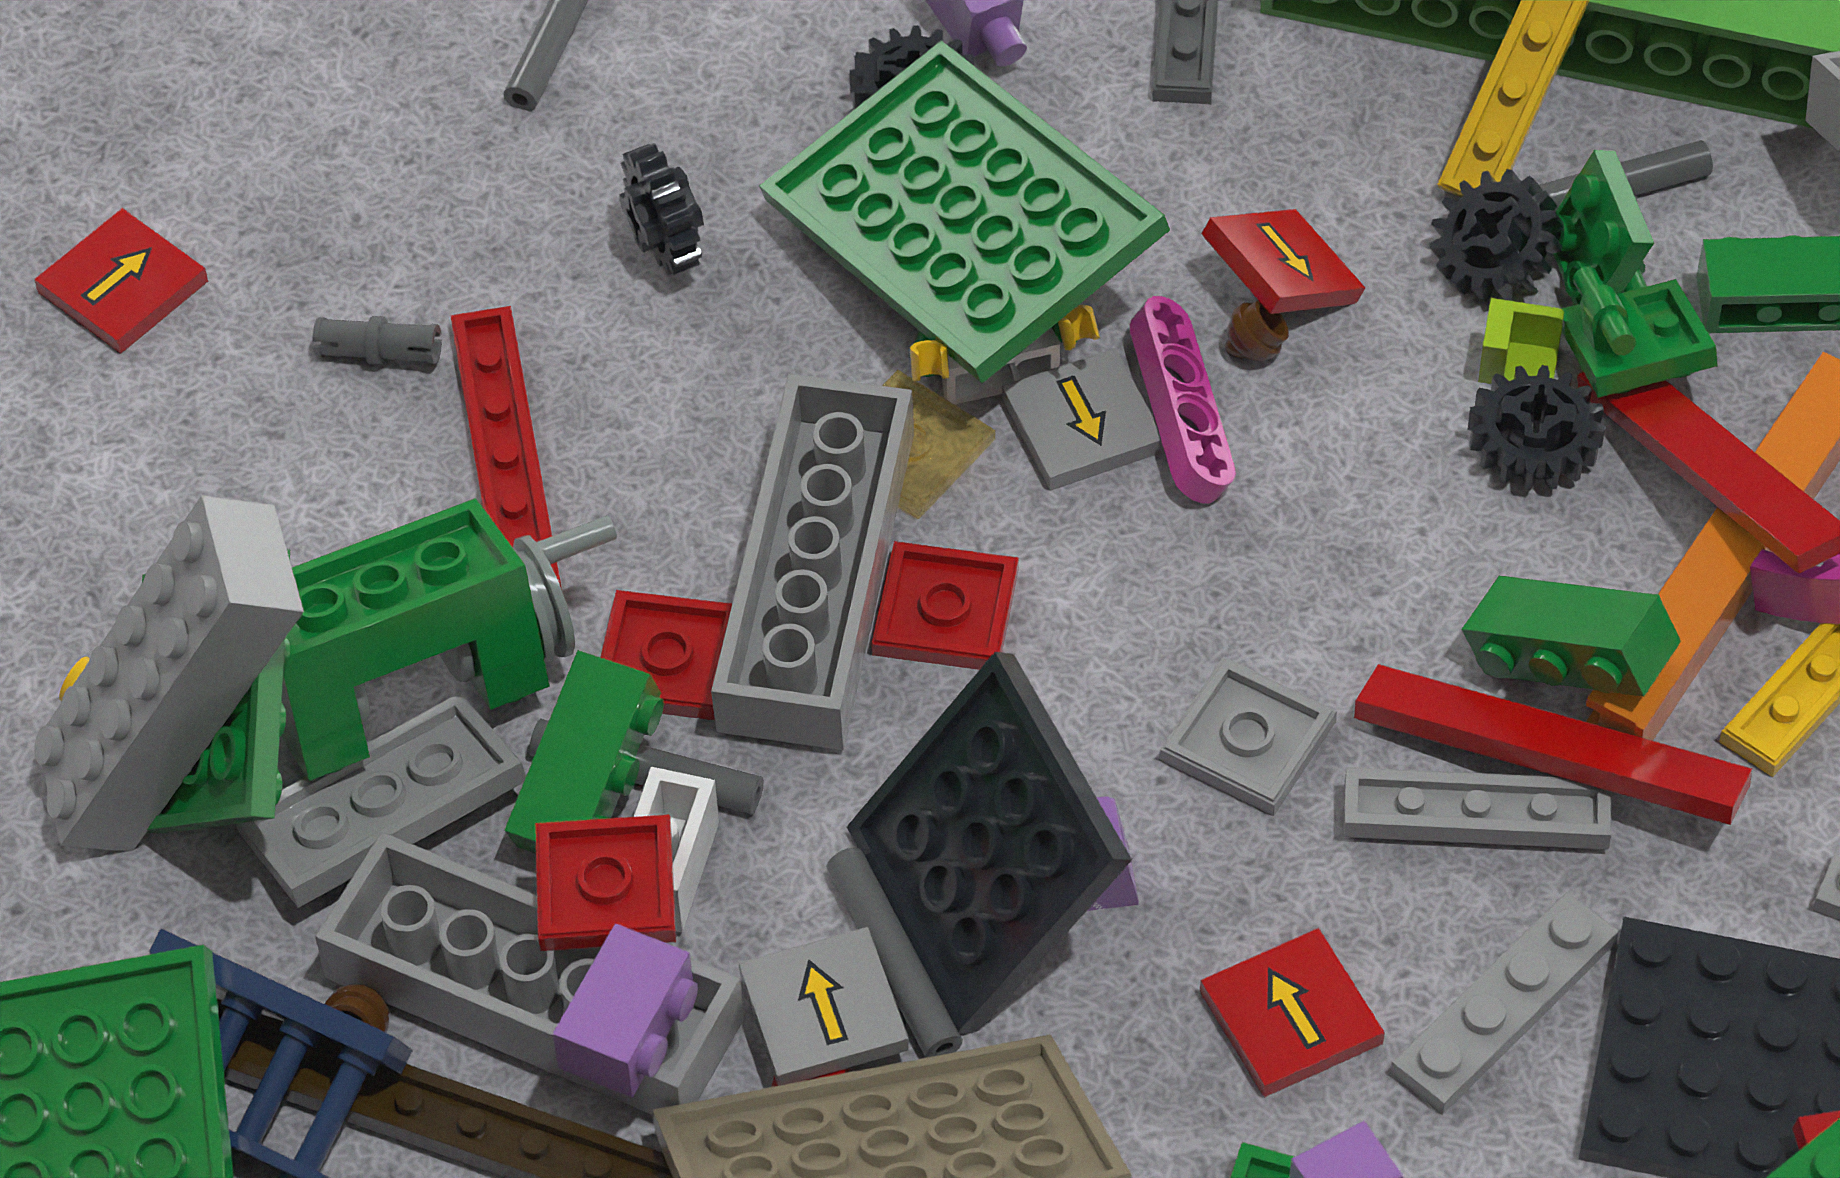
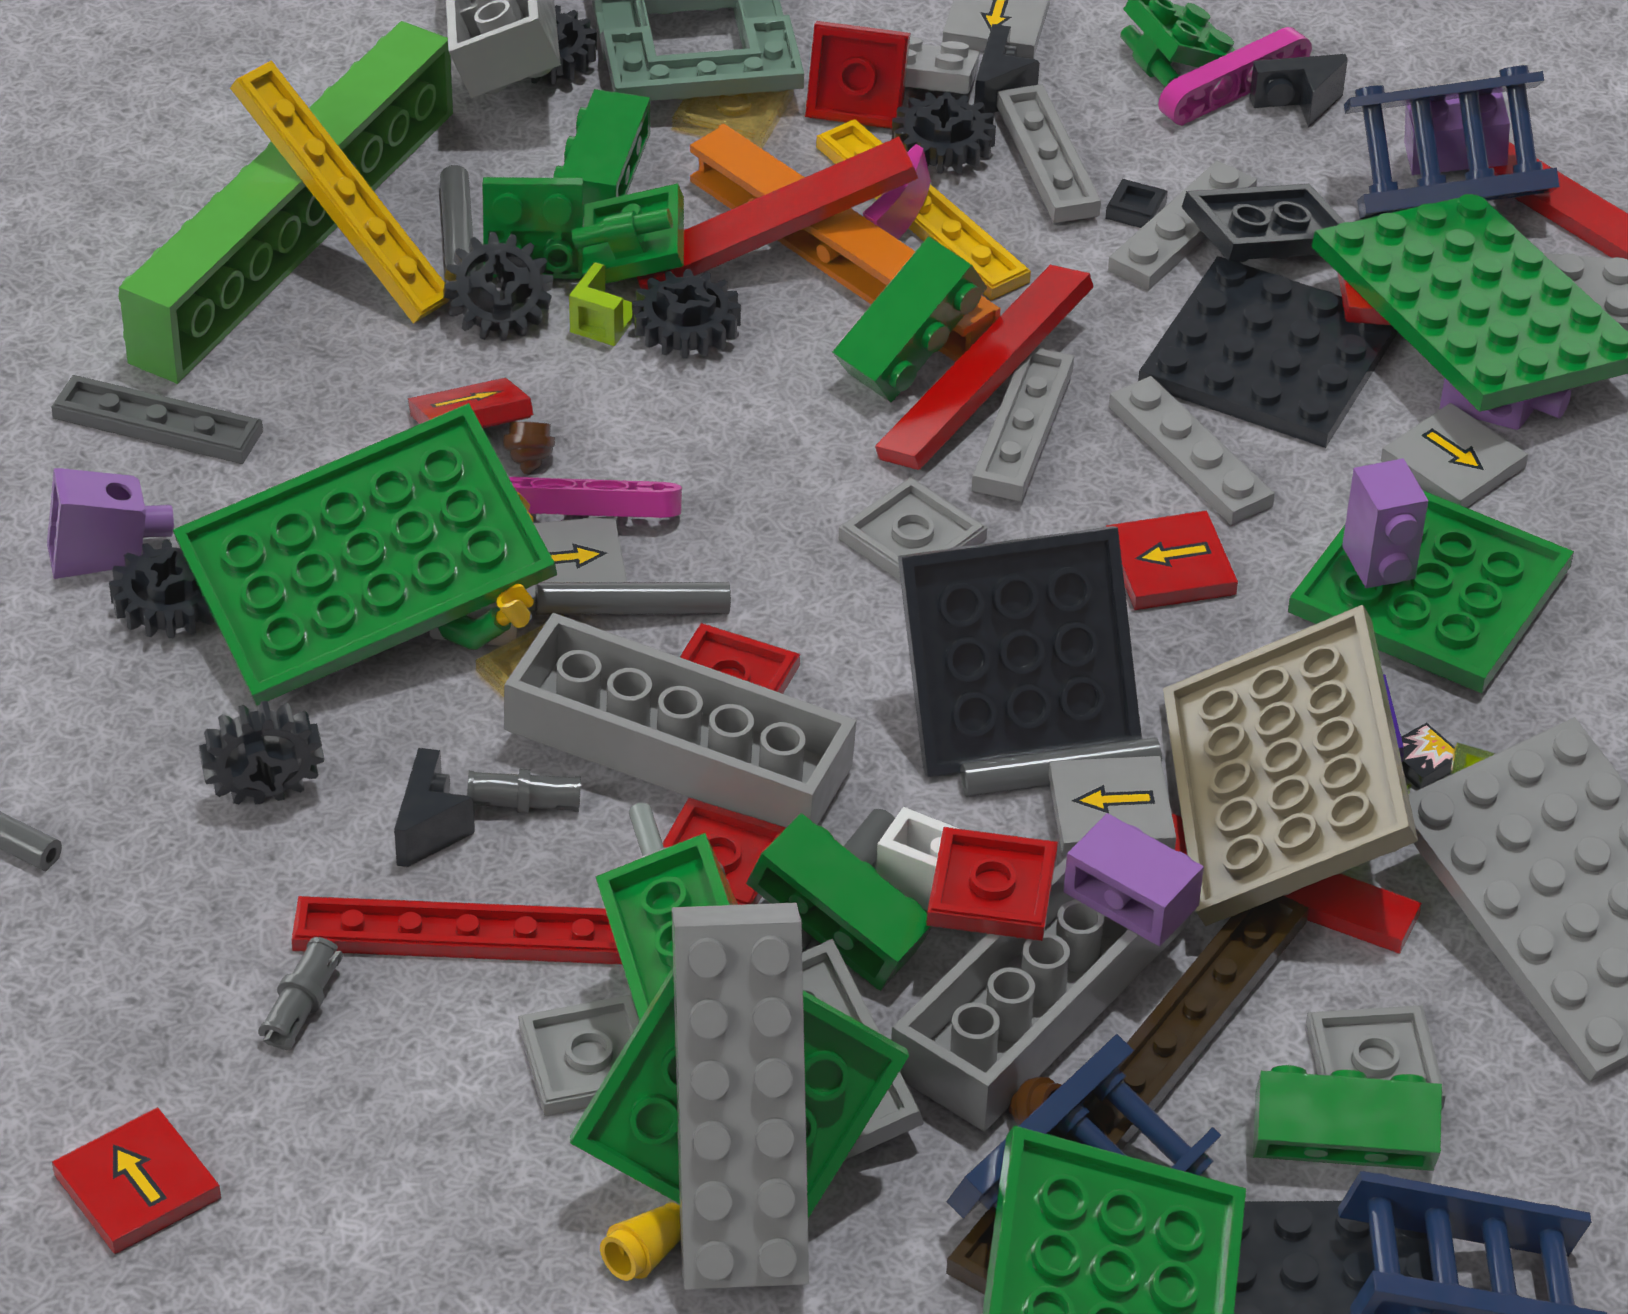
camera: 80 degrees left, 10 degrees down
(637, 372) = (430, 814): none -> black slope
(708, 456) = (524, 791): none -> dark grey pin
(1032, 485) = (632, 598): none -> dark grey piece

